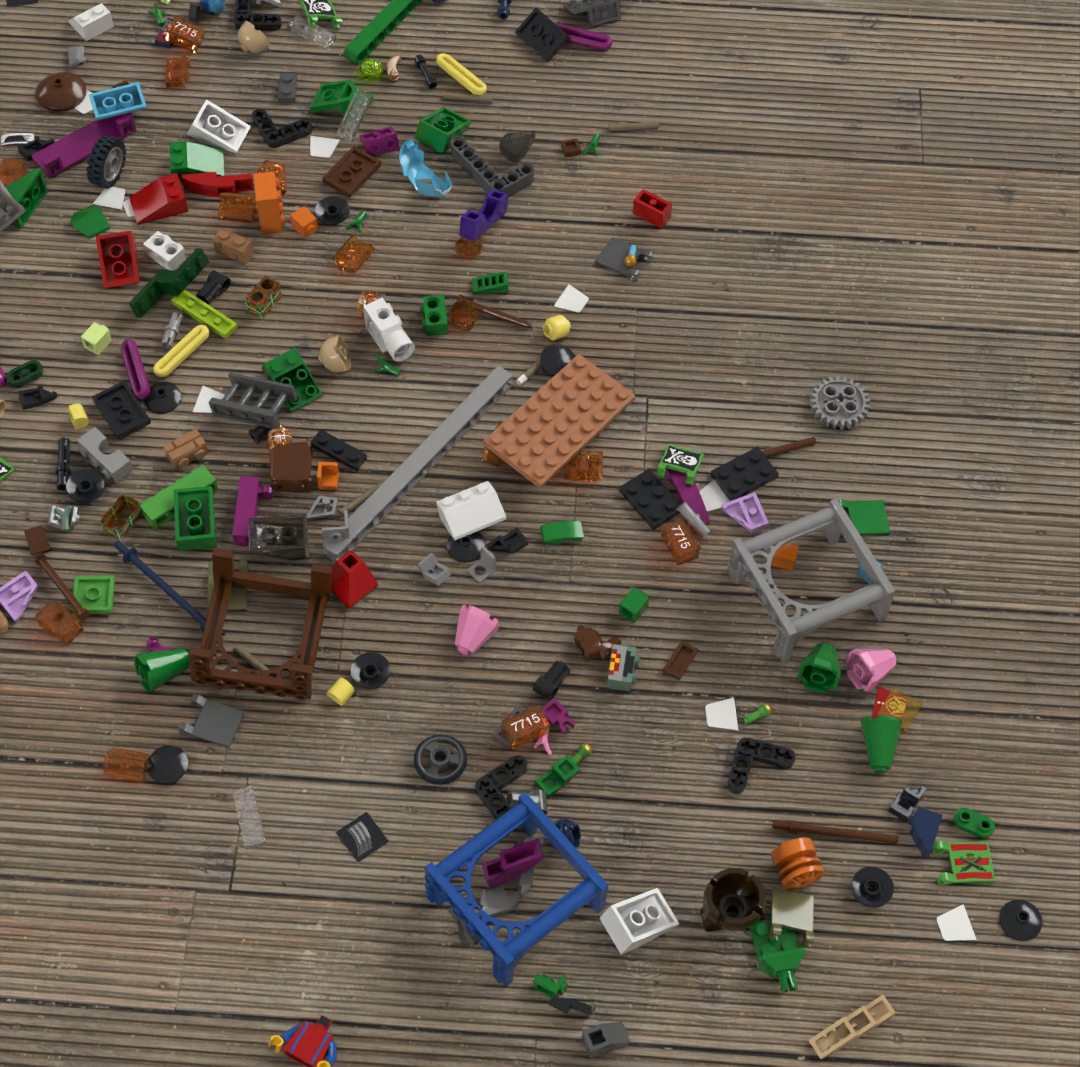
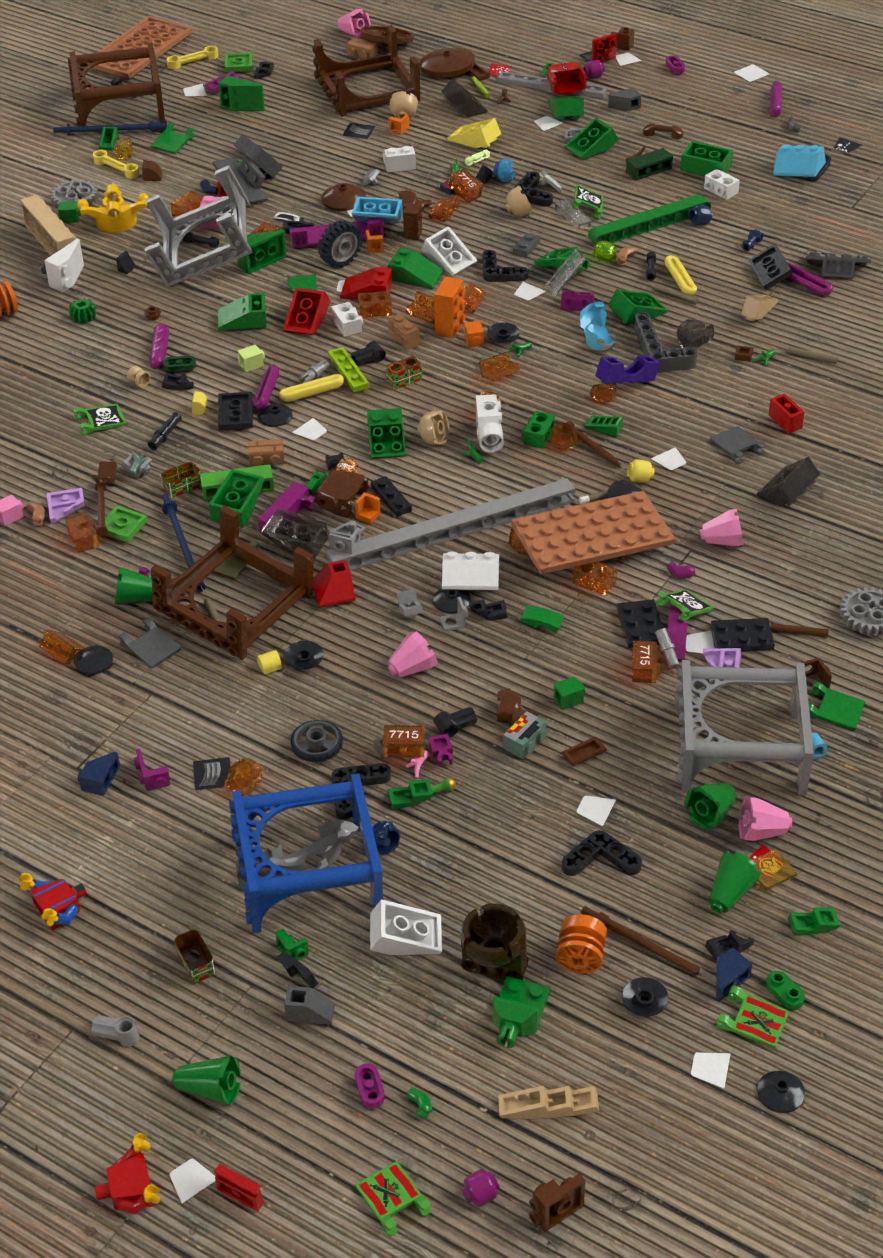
camera: 30 degrees right, 15 degrees down
(53, 285) = (243, 313): none -> green slope
(85, 479) = (169, 449): black dish -> none
(111, 198) = (332, 275): white sticker -> none
(114, 465) = (198, 435): light grey arch -> none
(132, 142) = (374, 243): none -> orange panel
(136, 73) = (410, 197): none -> reddish brown animal
(160, 102) = (412, 221): none -> reddish brown brick
(169, 282) = (333, 338): dark green bracket -> none
(182, 222) = (375, 304): none -> clear orange brick
(211, 185) = (411, 284): red slope -> none
(249, 817) = (129, 720): clear plate -> none
(253, 414) = (340, 444): dark grey fence -> none
(256, 467) = (315, 481): none -> green bar
(259, 891) = (99, 774): none -> dark blue slope
(313, 873) = (152, 778): none -> magenta bracket
(351, 171) = (539, 313): reddish brown plate -> none
(399, 831) = (243, 776): none -> clear orange hair
(476, 1028) = (193, 941): none -> reddish brown piece
(512, 863) = (318, 835): magenta slope -> none
(537, 796) = (376, 803): dark grey piece -> none
(555, 87) = (758, 306): none -> tan slope
(630, 260) = (741, 444): pearl gold piece -> none
(654, 427) = (682, 571): none -> magenta arm
(670, 366) = (723, 530): none -> bright pink cone
(695, 287) = (790, 482): none -> clear smoke slope
(763, 711) = (635, 819): bright green piece -> none
(785, 556) = (737, 706): orange brick -> none
(793, 912) = (552, 984): olive flag -> none
(833, 485) = (820, 670): none -> reddish brown bracket
(960, 745) = (818, 921): none -> green slope

